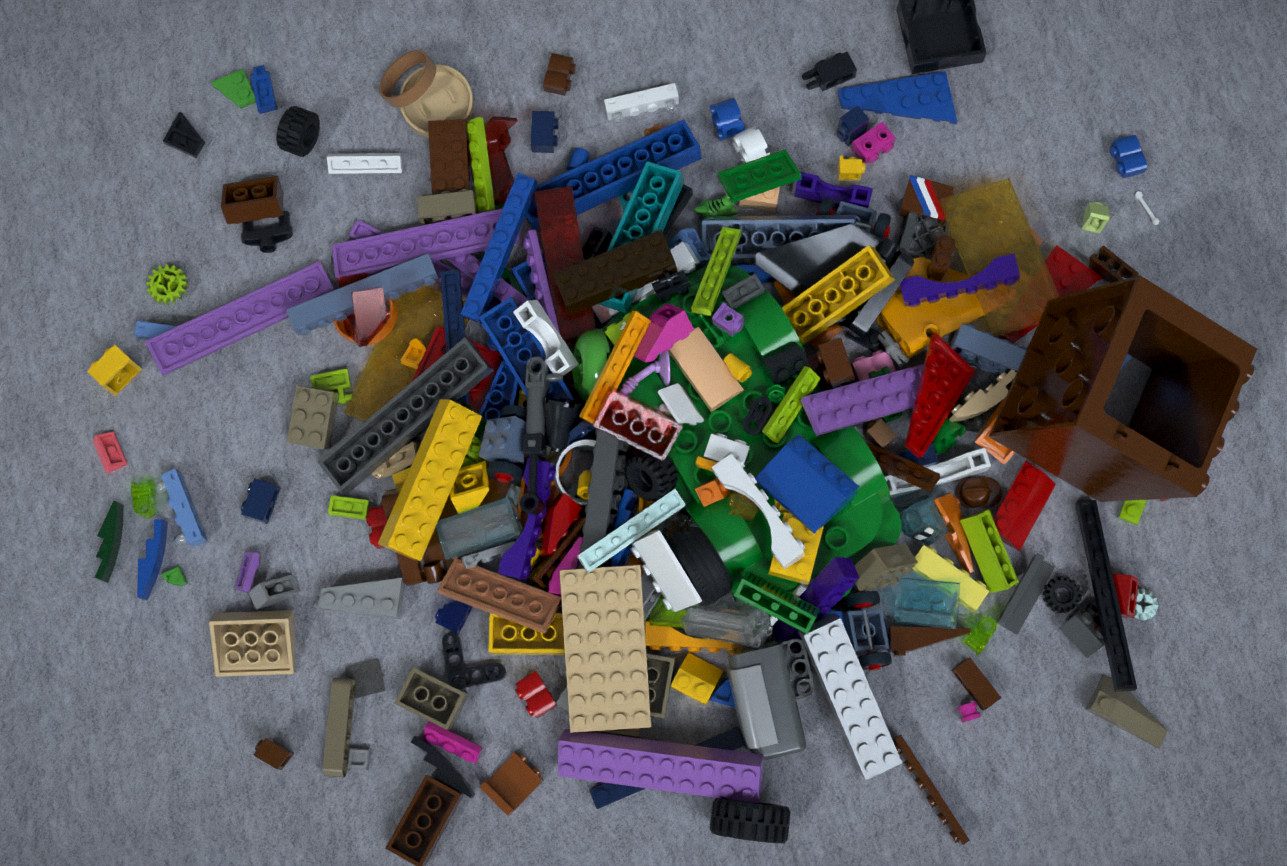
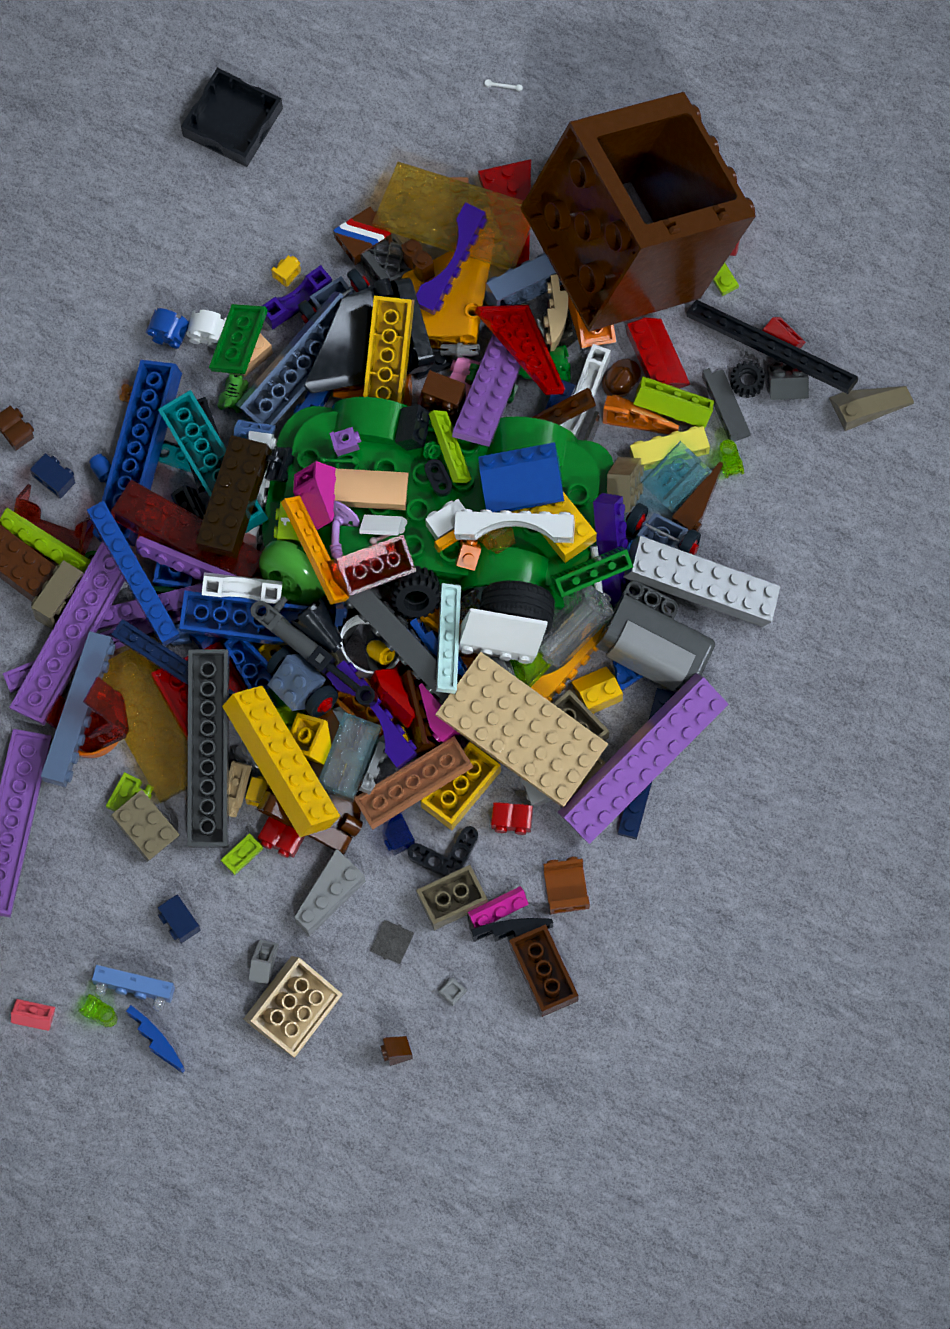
camera: 55 degrees left, 5 degrees down
(111, 533) = (109, 1059): dark green slope -> none
(175, 576) = (184, 1033): bright green tile -> none
(249, 565) = (229, 970): medium lavender piece -> none
(339, 727) = (415, 986): dark tan beam -> none
(414, 353) = (159, 708): light orange plate -> none
(641, 101) = (93, 382): white piece -> none
(716, 271) = (295, 422): lime plate -> none
(738, 368) = (388, 463): yellow cone -> none
(743, 292) = (329, 415): dark grey plate -> none
(750, 820) = (735, 722): black tyre -> none
(831, 72) = (195, 222): black hinge -> none
(852, 125) = (255, 241): dark blue brick -> none
(873, 143) = (281, 237): dark pink brick -> none
(880, 434) = (518, 408): medium nougat brick -> none
(909, 97) = (263, 185): blue wing -> none
(923, 522) = (614, 431): clear light blue slope -> none
(933, 798) = (820, 584): reddish brown plate -> none
(969, 711) = (780, 512): dark pink wheel -> none
(976, 684) = (764, 491): reddish brown piece -> none
(1095, 217) = (480, 126): yellowish green slope -> none
(1112, 262) = (526, 141): reddish brown piece -> none
(1128, 156) = (452, 65): blue brick -> none
(1149, 611) = (809, 329): light aqua gear -> none

